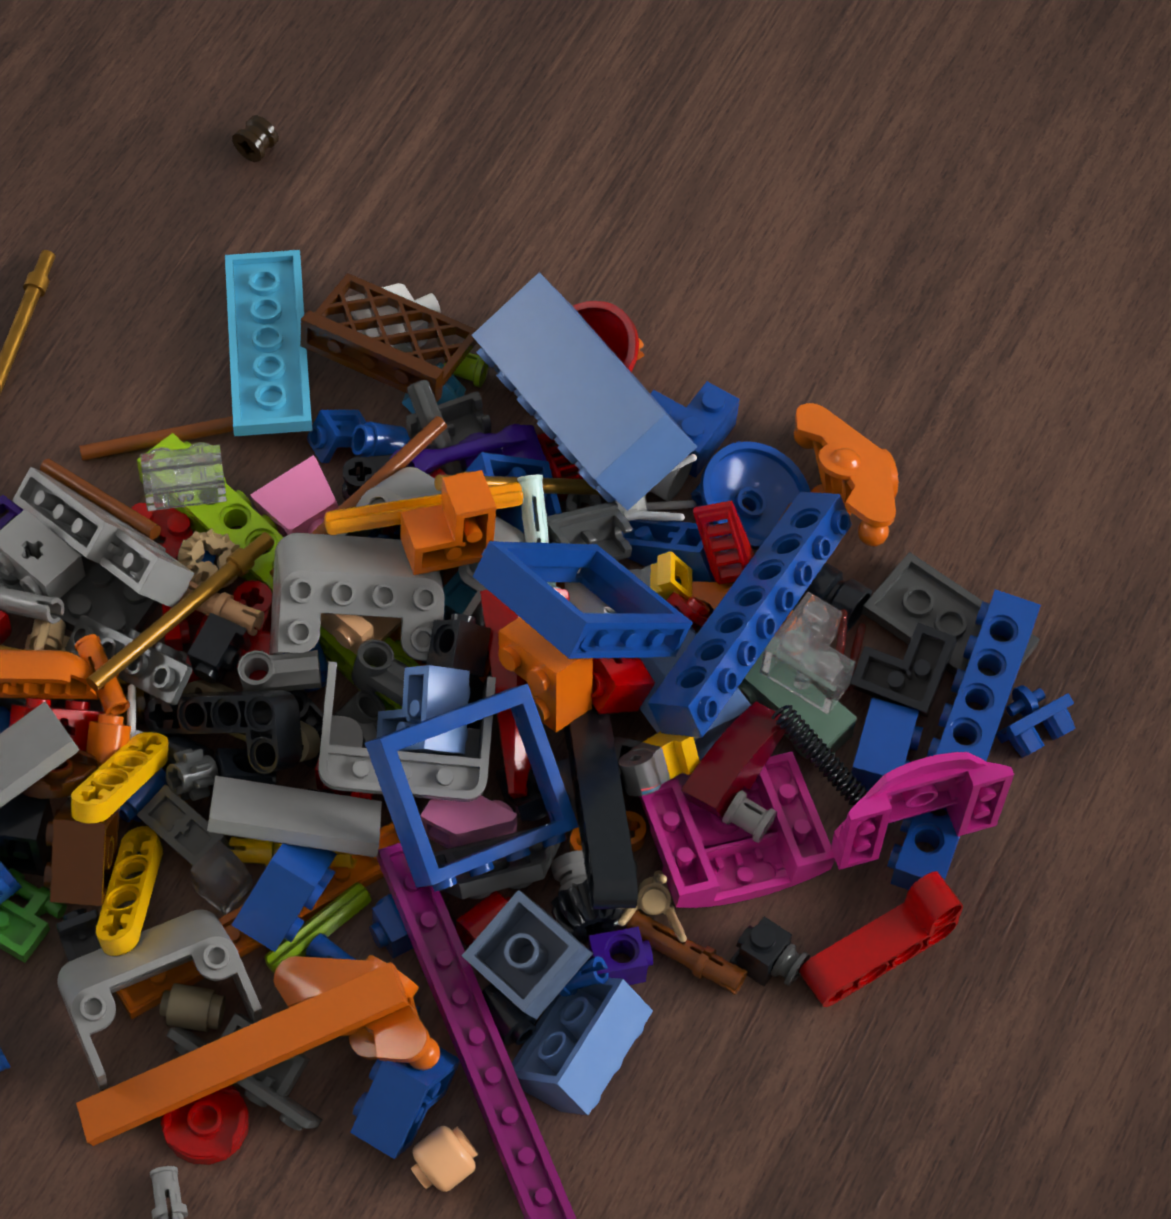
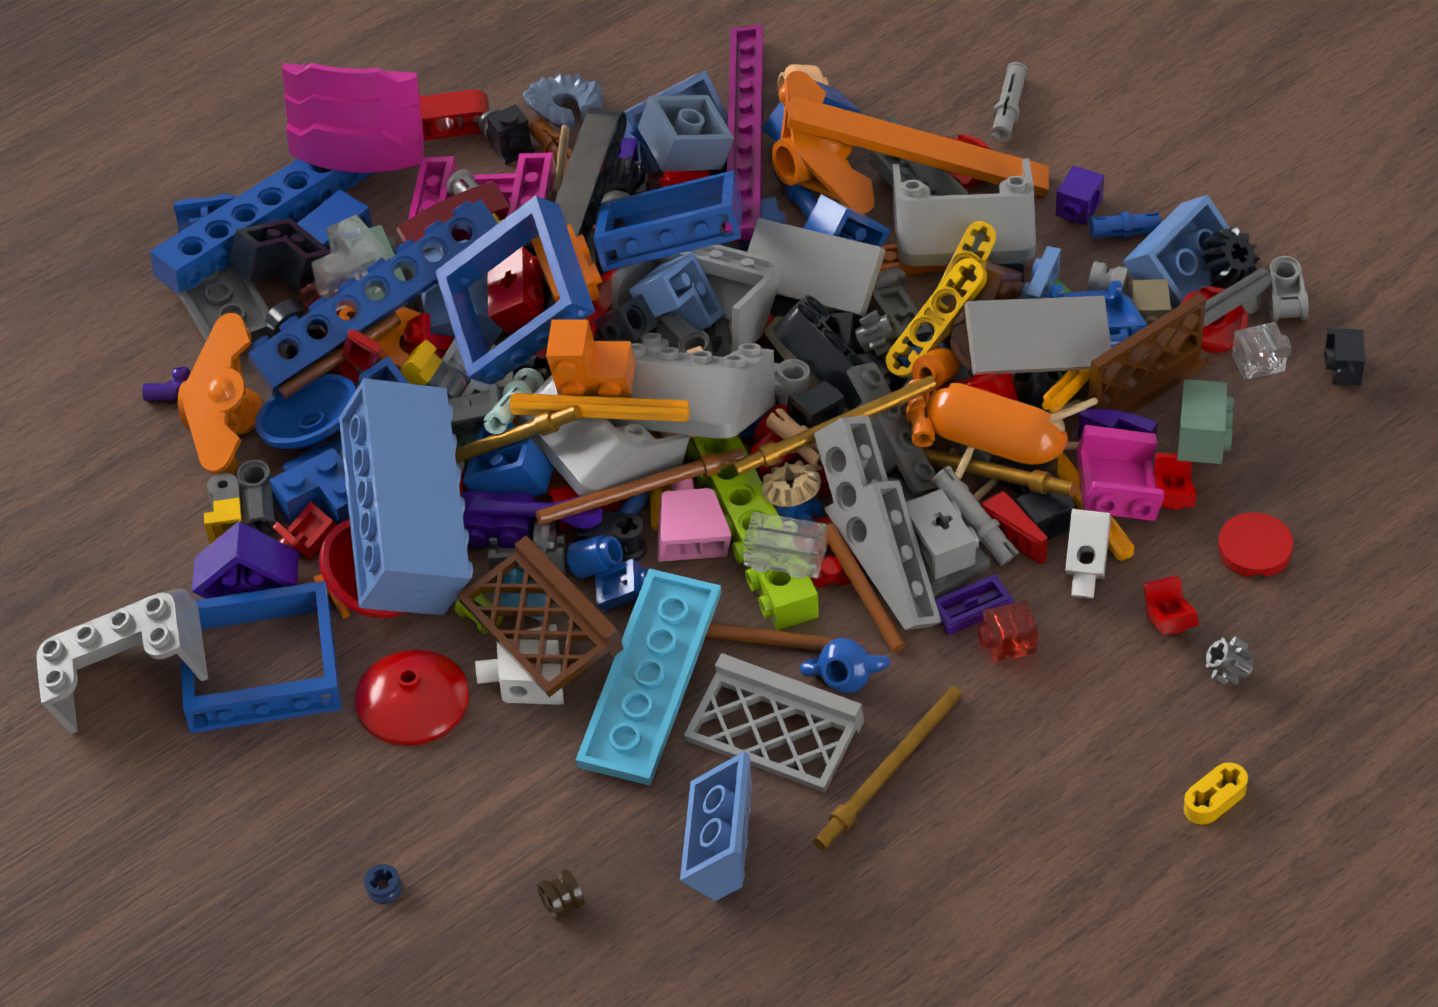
camera: 150 degrees left, 10 degrees down
(29, 931) = (1044, 274): none -> medium blue plate
(32, 1097) = (1079, 195): none -> dark purple brick
(89, 411) = (844, 665): none -> blue piece
(132, 369) = (780, 692): none -> light grey fence
(135, 212) = (718, 828): none -> medium blue slope
(417, 121) = (379, 872): none -> dark blue bush
(476, 290) = (413, 710): none -> red dish
(627, 208) = (268, 701): none -> blue window
(684, 378) = (307, 531): none -> red bracket
(704, 313) = (243, 561): none -> dark purple brick
(751, 1038) = (550, 93): none -> sand blue piece
(755, 411) = (257, 496): none -> dark grey piece
(760, 202) = (163, 623): none -> light grey windscreen
(772, 387) = (226, 504): none -> leg
(817, 756) = (386, 202): black piece -> none
(924, 504) = (166, 391): none -> dark purple arm

